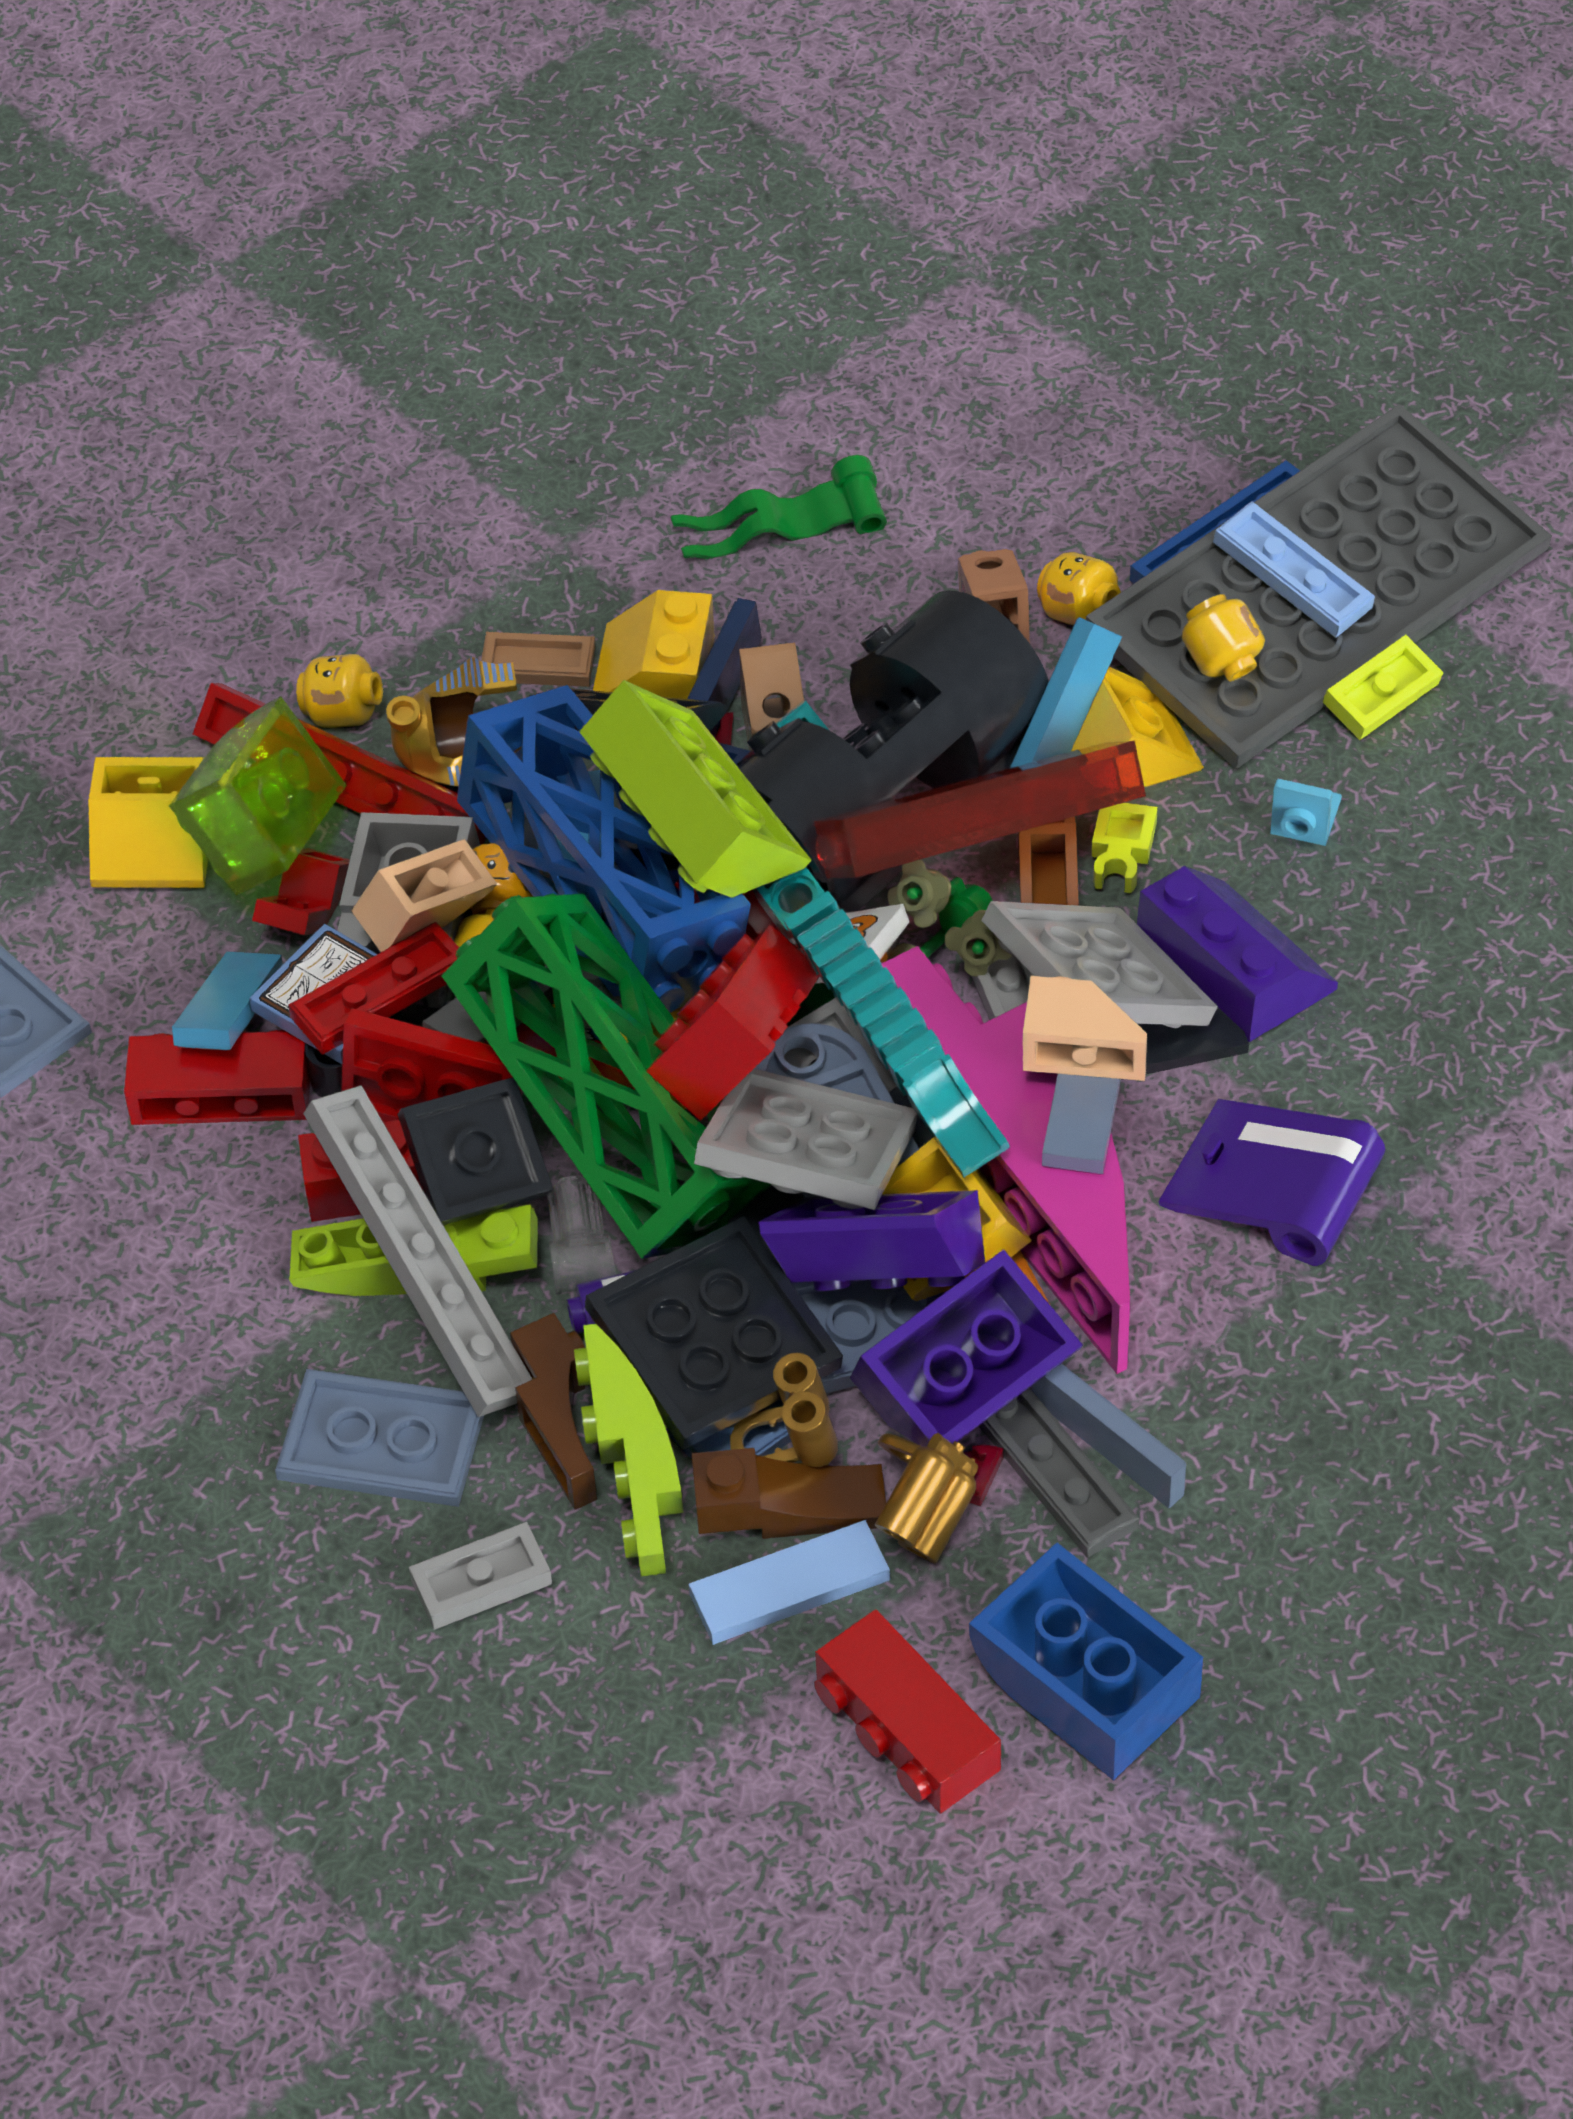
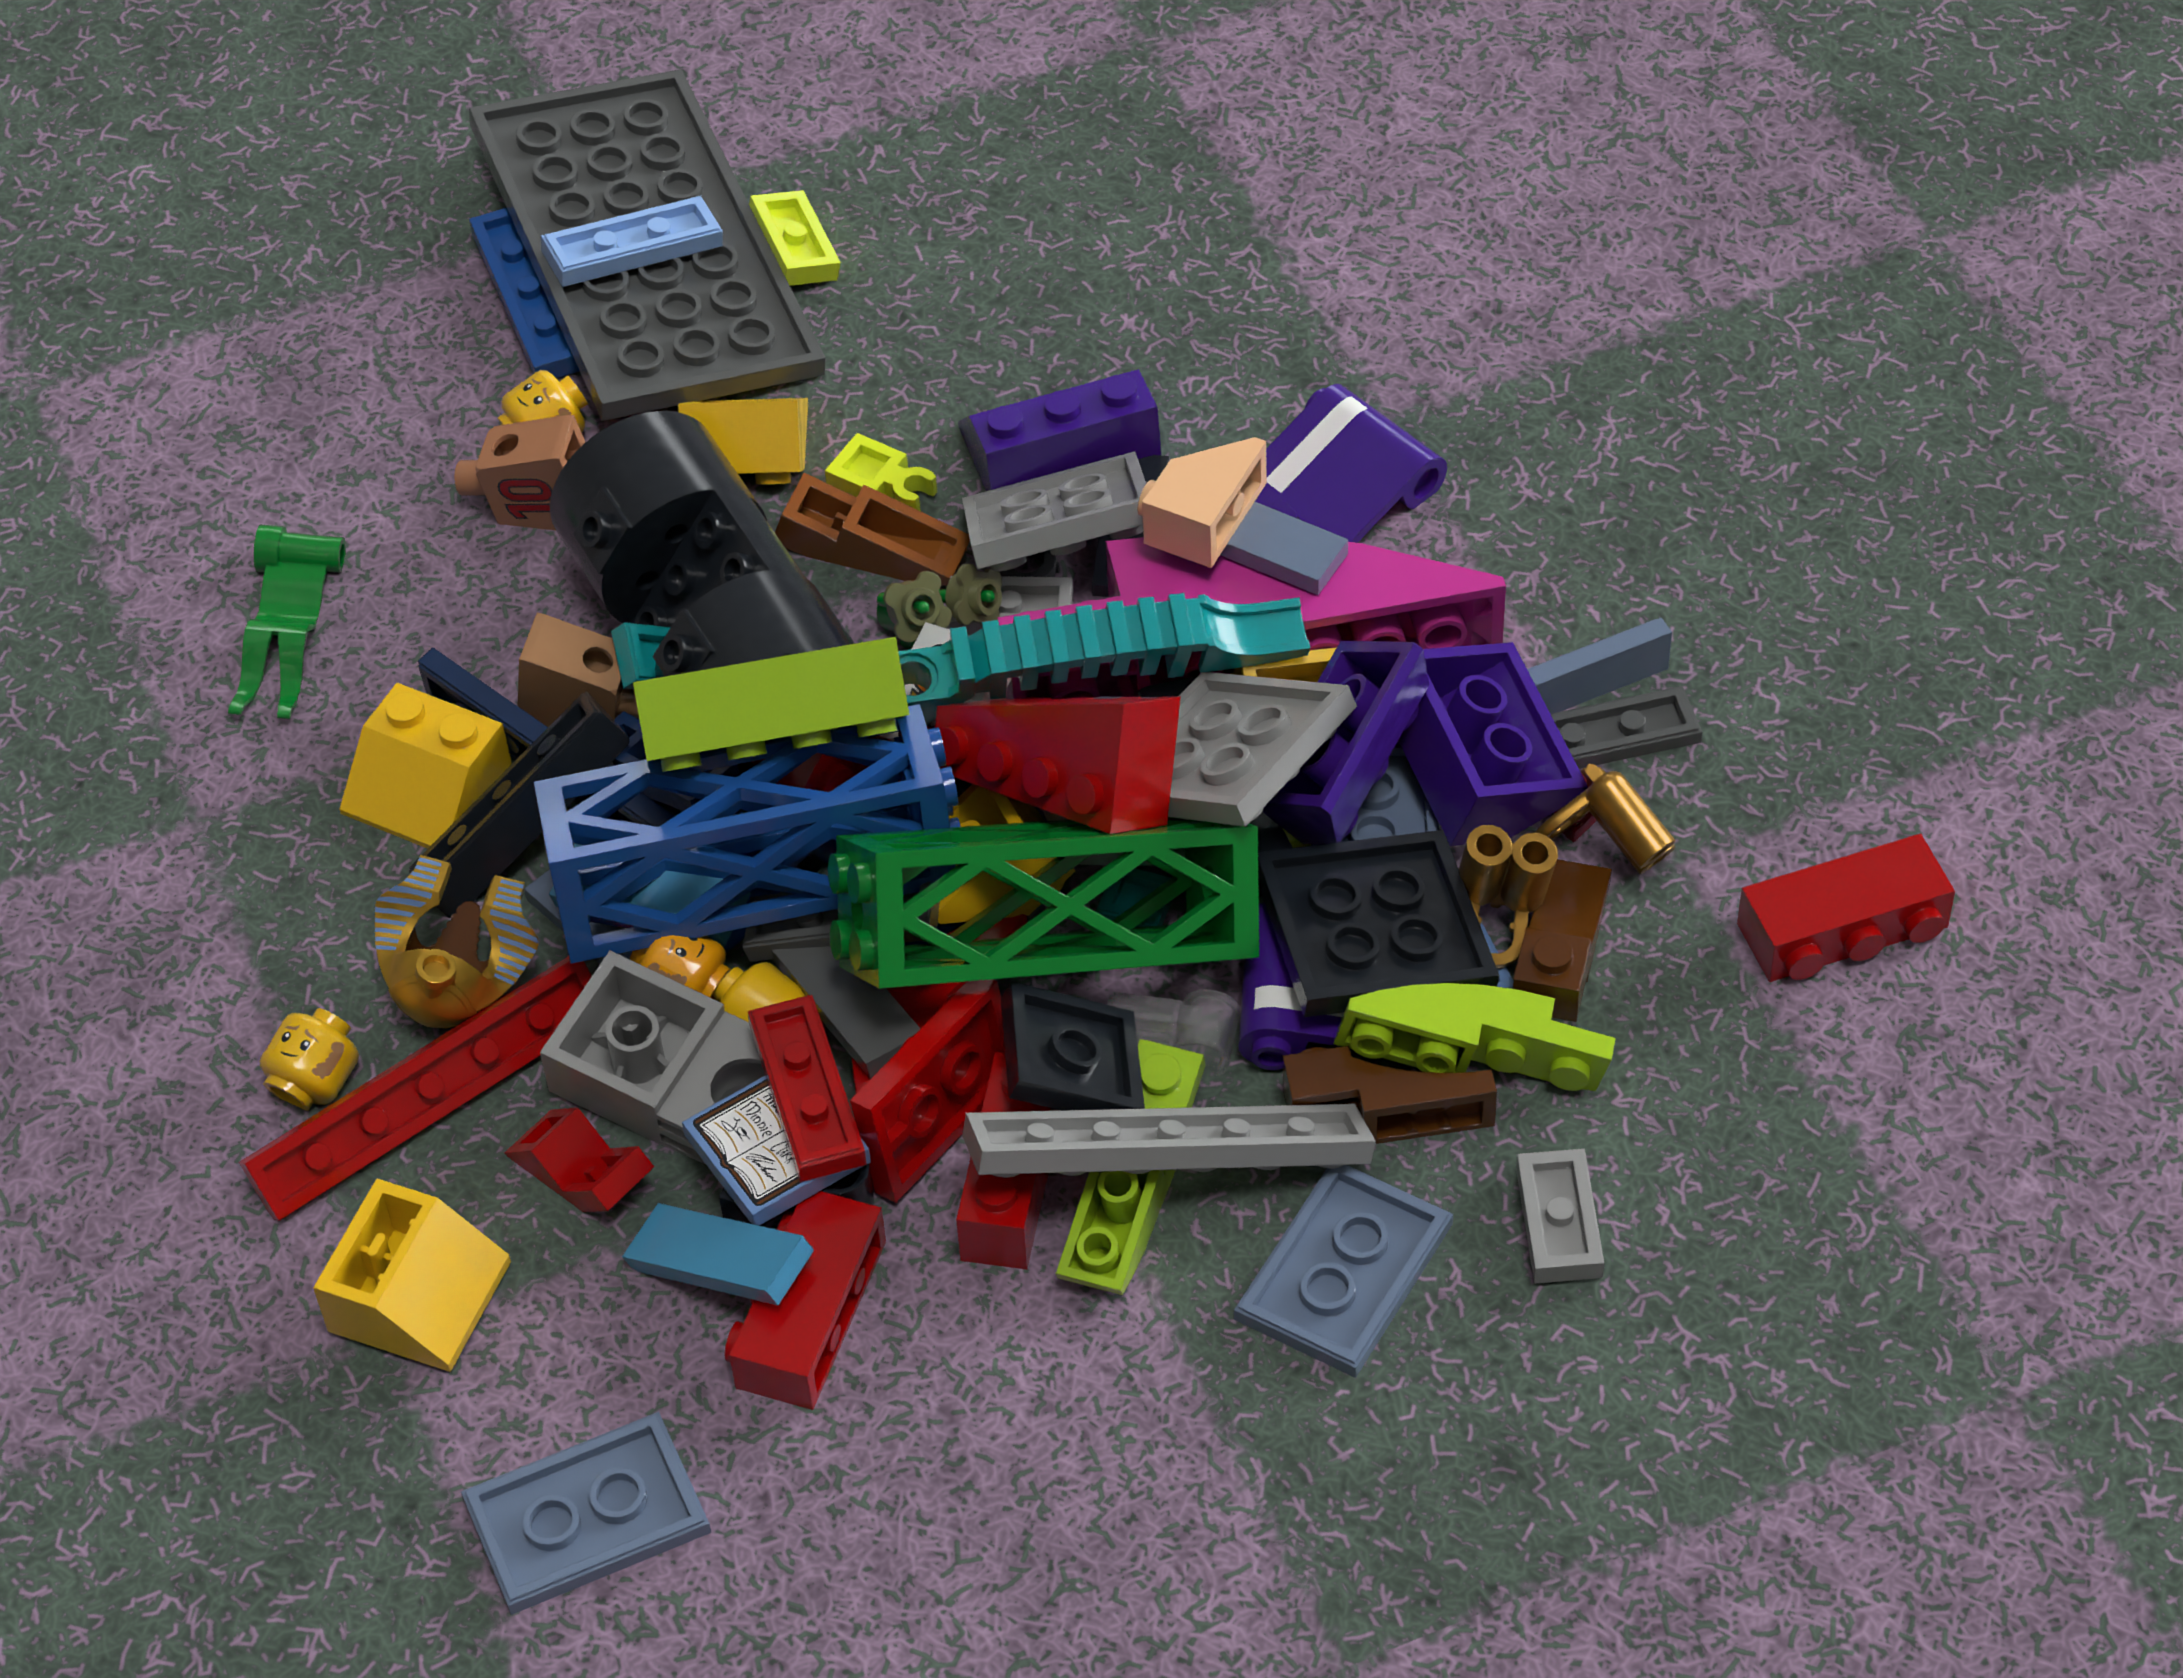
camera: 70 degrees left, 0 degrees up
(258, 796) = (465, 1146): clear neon green brick -> none
(422, 892) = (714, 1012): light nougat slope -> none
(543, 657) = (354, 880): medium nougat tile -> none
(789, 1582) = (1653, 970): light blue tile -> none
(978, 809) = (847, 523): clear red brick -> none
(1069, 693) = (714, 417): dark azure tile -> none
(1086, 1660) = (1853, 749): blue brick -> none
(1223, 637) = (701, 306): yellow head -> none
(1303, 811) = (923, 333): medium azure bracket -> none

